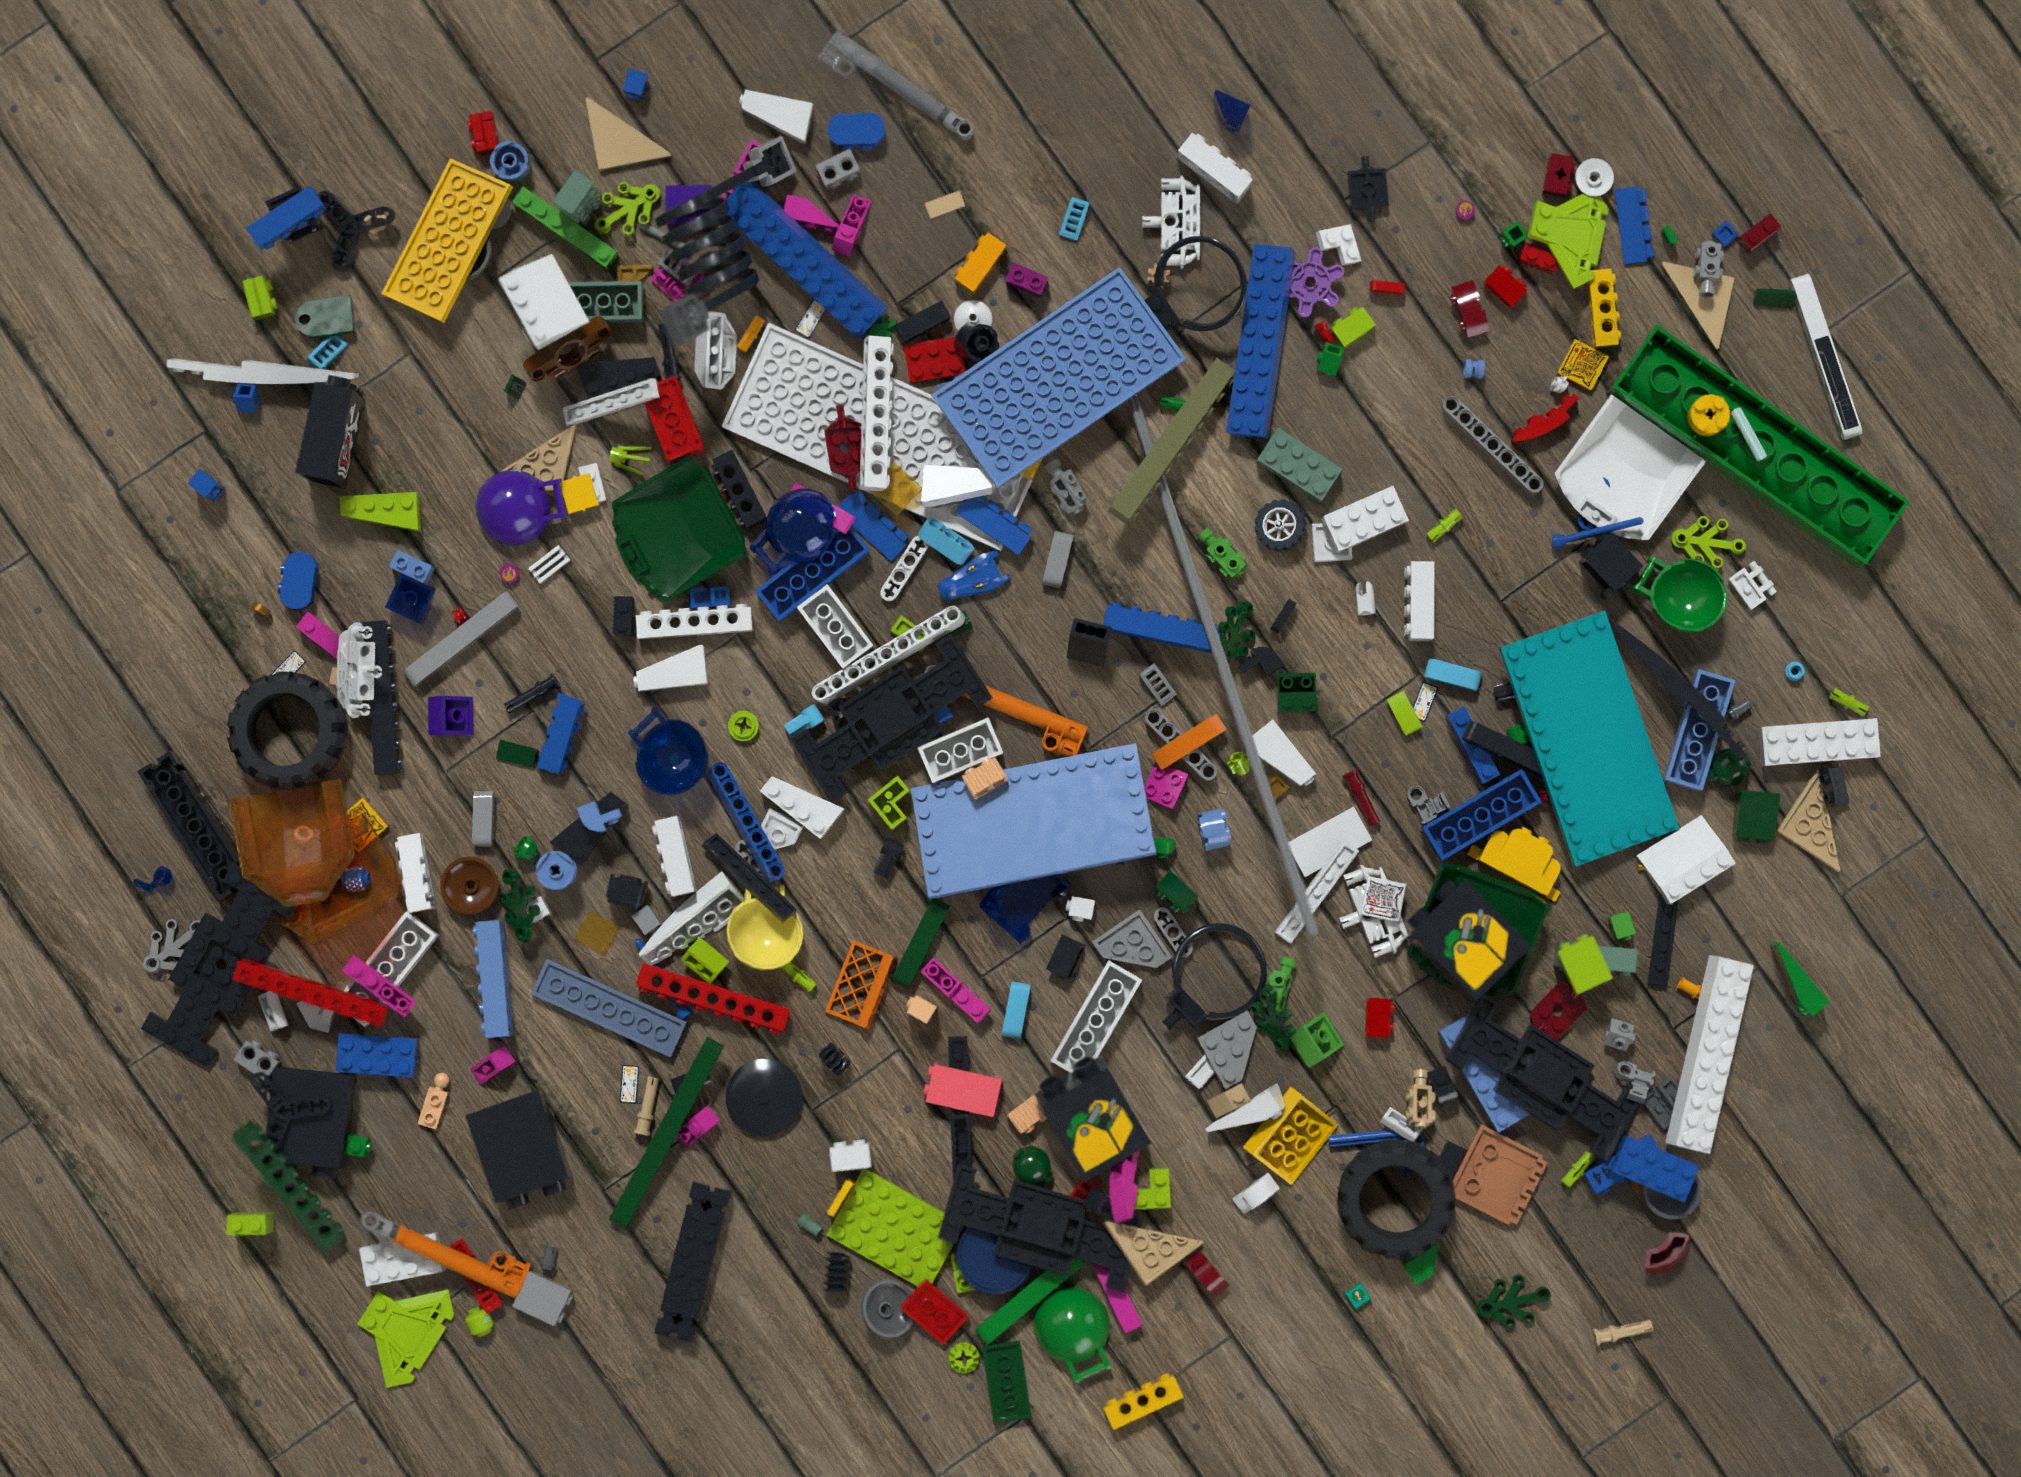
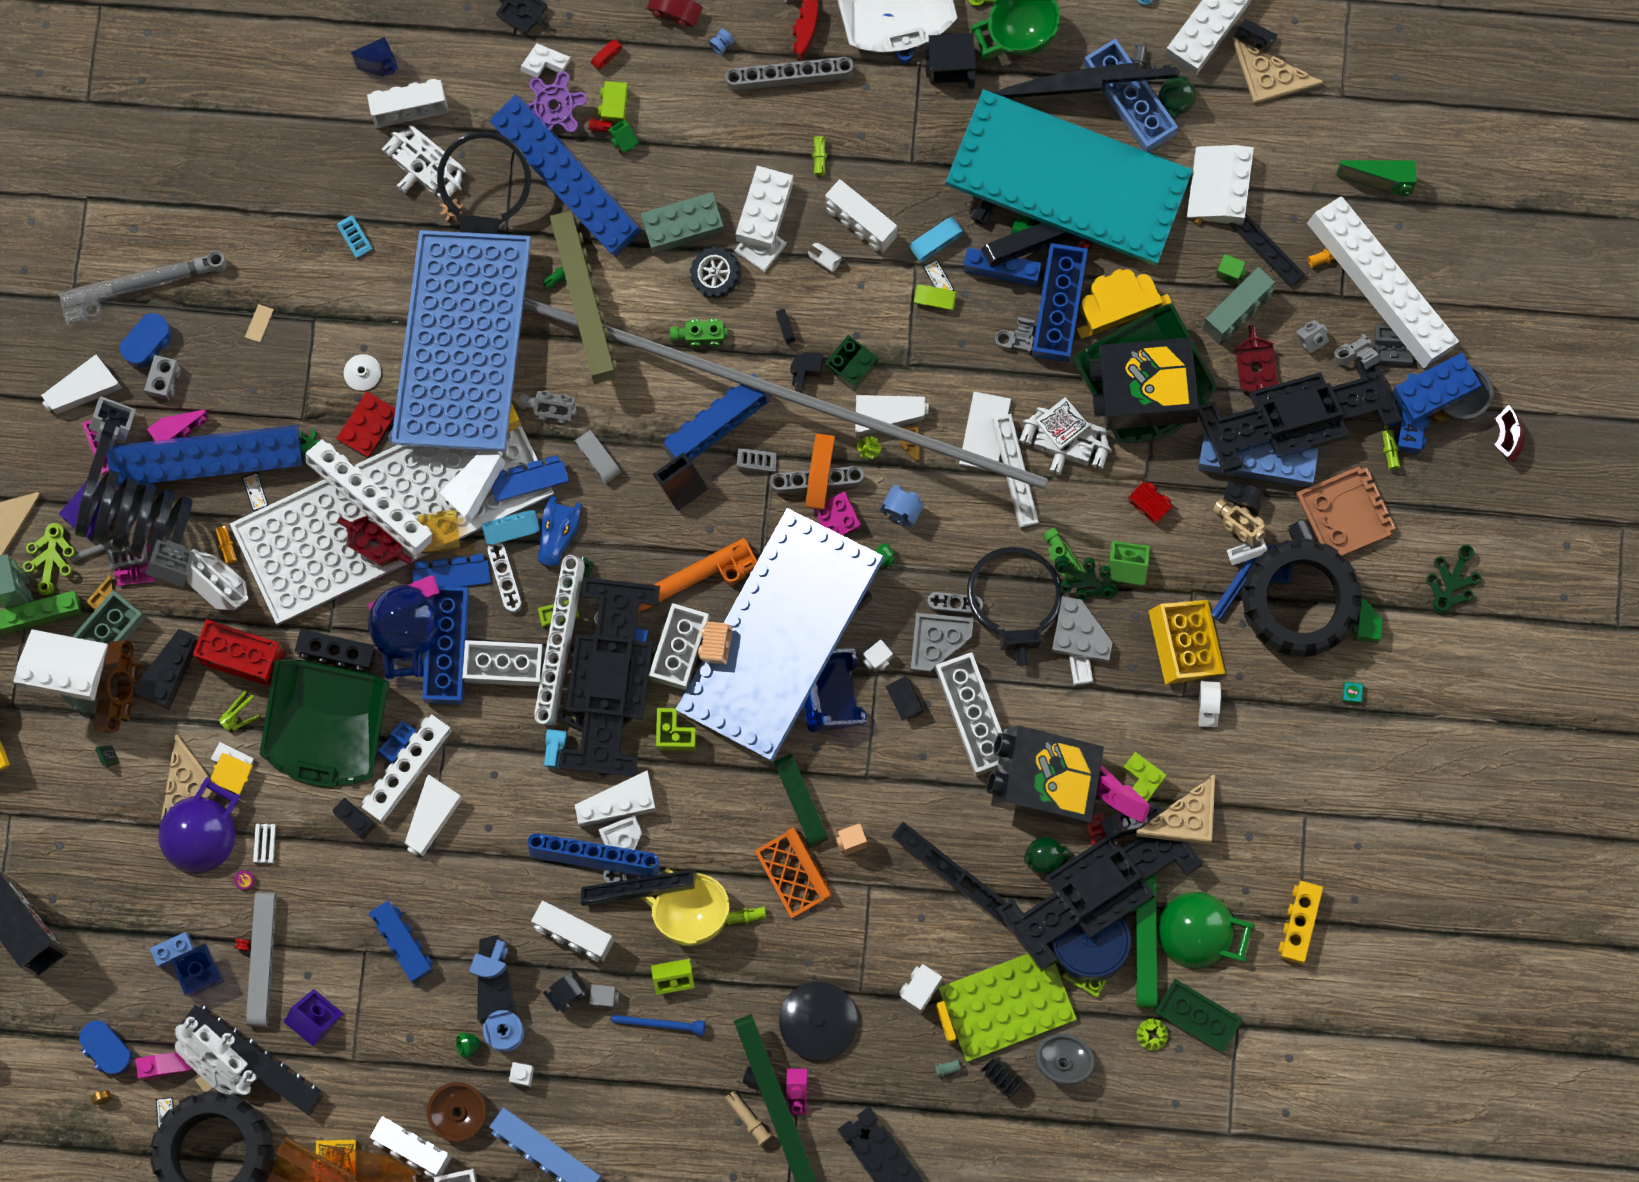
camera: 50 degrees left, 10 degrees down
(390, 509) = (109, 935): lime wedge -> none
(483, 818) = (414, 1059): light grey beam -> none
(516, 753) = (386, 990): dark green slope -> none
(518, 907) = (526, 1096): dark green plant -> none
(540, 689) = (353, 929): black pin -> none
(596, 932) = (578, 1045): clear yellow piece -> none
(608, 1008) = (645, 1084): sand blue plate -> none
(611, 402) = (183, 687): white tile -> none
(629, 1084) = (718, 1119): sticker -> none
(669, 362) = (194, 620): black pin -> none
(670, 755) = (491, 867): clear blue windscreen -> none
(697, 916) = (634, 949): white wedge -> none
(705, 989) = (762, 954): red brick -> none
(739, 717) = (508, 797): lime gear -> none
(834, 1059) = (834, 939): black gear -> none
(851, 225) = (212, 403): dark pink slope -> none
(889, 855) = (712, 767): black piece -> none
(922, 322) = (331, 409): black beam -> none
(934, 1311) = (1096, 1025): red plate -> none
(956, 990) = (860, 803): dark pink slope -> none
(962, 1090) = (941, 860): coral panel -> none
(976, 341) = (381, 380): black brick -> none
(980, 262) = (325, 331): light orange brick -> none
(1016, 1010) = (914, 770): medium azure beam -> none
(1026, 280) = (368, 307): magenta brick -> none
(1026, 1115) = (1002, 827): light nougat brick -> none
(1120, 1302) = (1206, 875): dark pink slope -> none
(1175, 892) = (926, 575): dark green slope -> none
(1207, 1274) = (1242, 790): dark red brick -> none
(1228, 1100) = (1120, 665): tan slope -> none
(1243, 609) = (755, 351): dark green plant -> none
(1264, 1105) = (1145, 644): white wedge -> none
(1358, 789) = (962, 377): dark red pin -> none
(1561, 540) = (903, 82): blue piece -> none
(1583, 963) = (1236, 312): lime brick -> none
(1614, 1333) = (1539, 524): tan pin -> none
(1755, 816) = (1229, 106): dark green slope -> none

